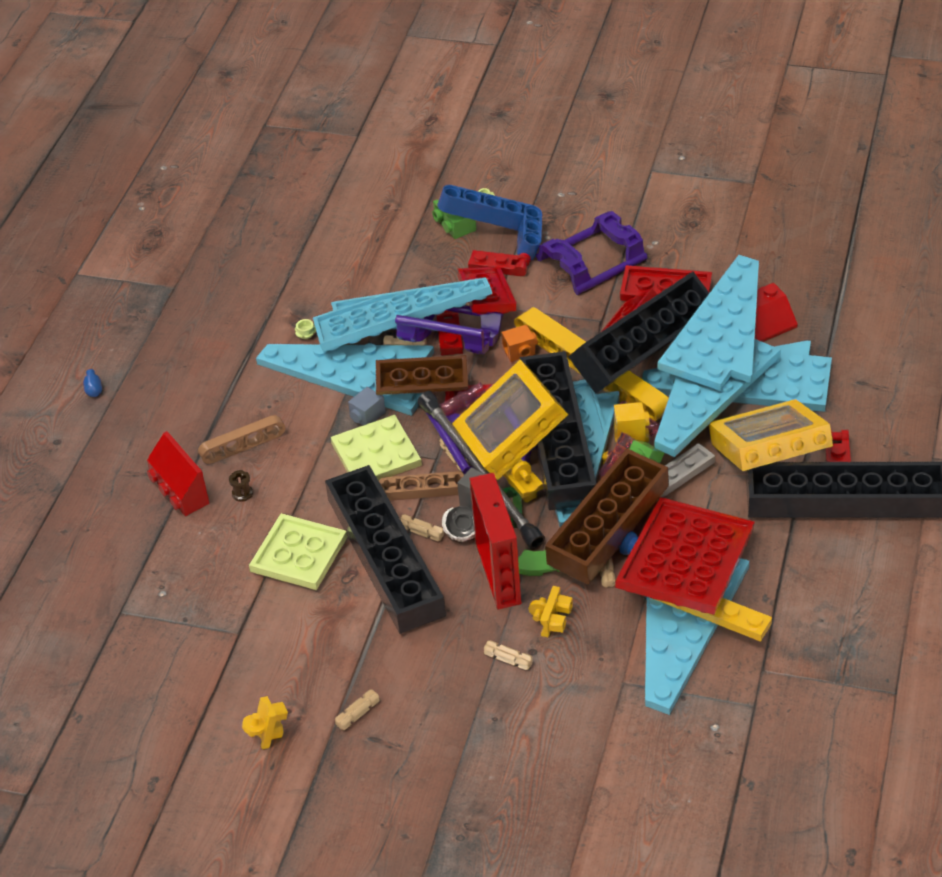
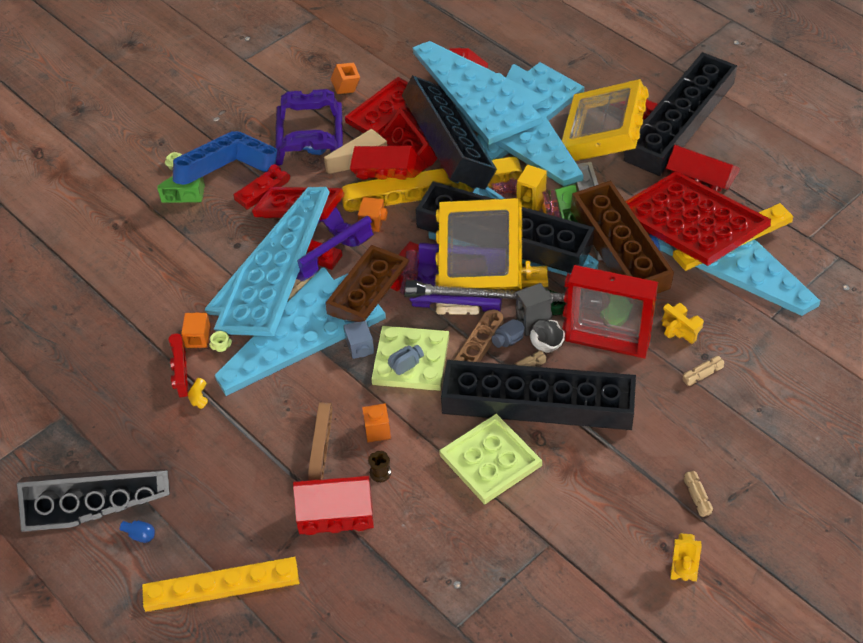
camera: 60 degrees left, 5 degrees up
(76, 455) = (220, 584): none -> yellow plate
(99, 334) = (85, 496): none -> black wedge
(244, 343) = (195, 394): none -> yellow arm
(261, 319) = (179, 365): none -> red plate
(282, 461) = (376, 422): none -> orange brick
(304, 306) = (196, 330): none -> orange brick
(356, 441) = (405, 359): none -> sand blue arm
(444, 498) = (508, 333): none -> sand blue arm
(571, 315) = (386, 162): none -> red slope
(590, 298) = (341, 158): none -> tan slope
(672, 239) = (345, 78): none -> orange brick
(784, 542) = (702, 168): none -> red slope

